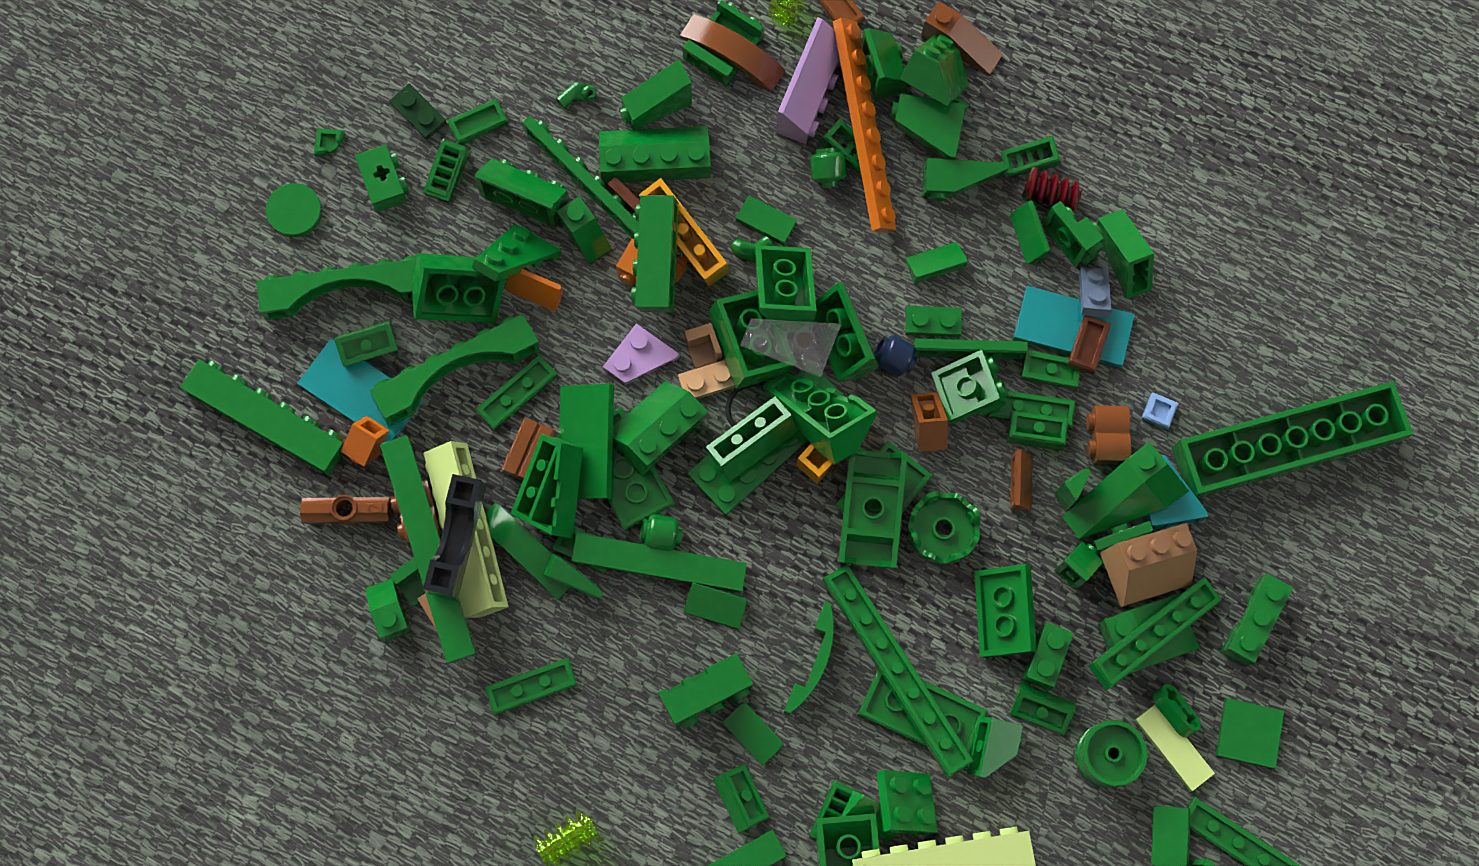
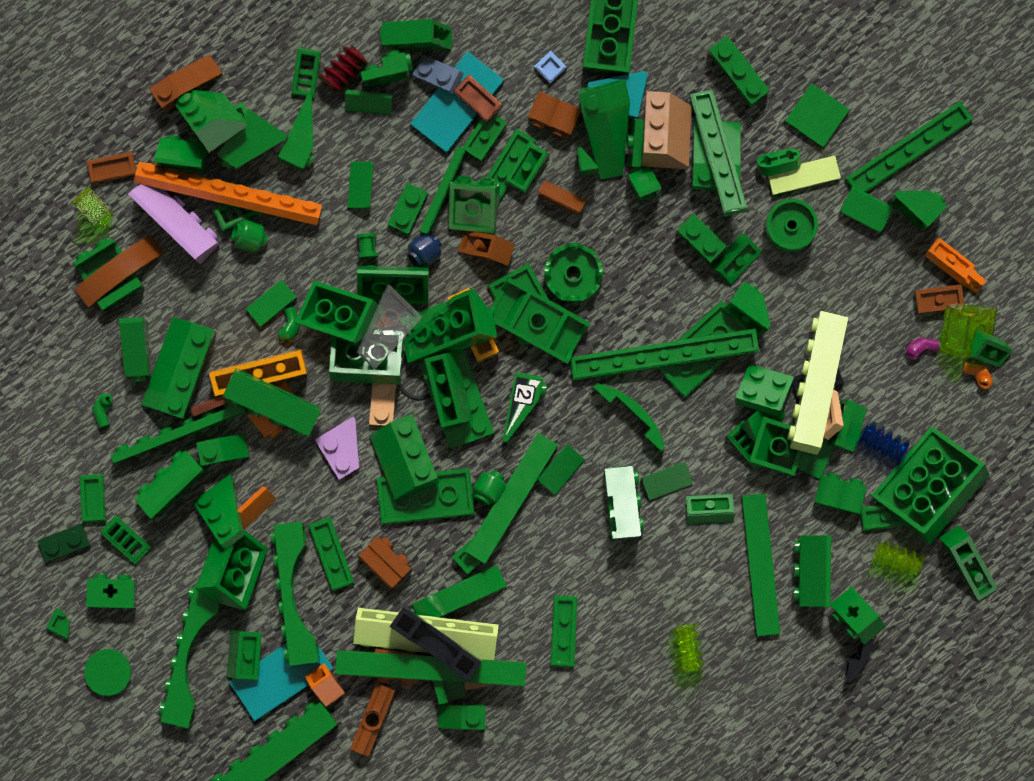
camera: 65 degrees left, 10 degrees up
(551, 487) = (422, 557): green wedge -> none
(562, 572) = (490, 575): green slope -> none
(588, 423) = (395, 516): green tile -> none
(703, 345) = (355, 395): medium nougat panel -> none
(777, 530) = (523, 399): none -> slope
(873, 293) = (367, 246): none -> green bush
(1005, 611) = (655, 255): green plate -> none

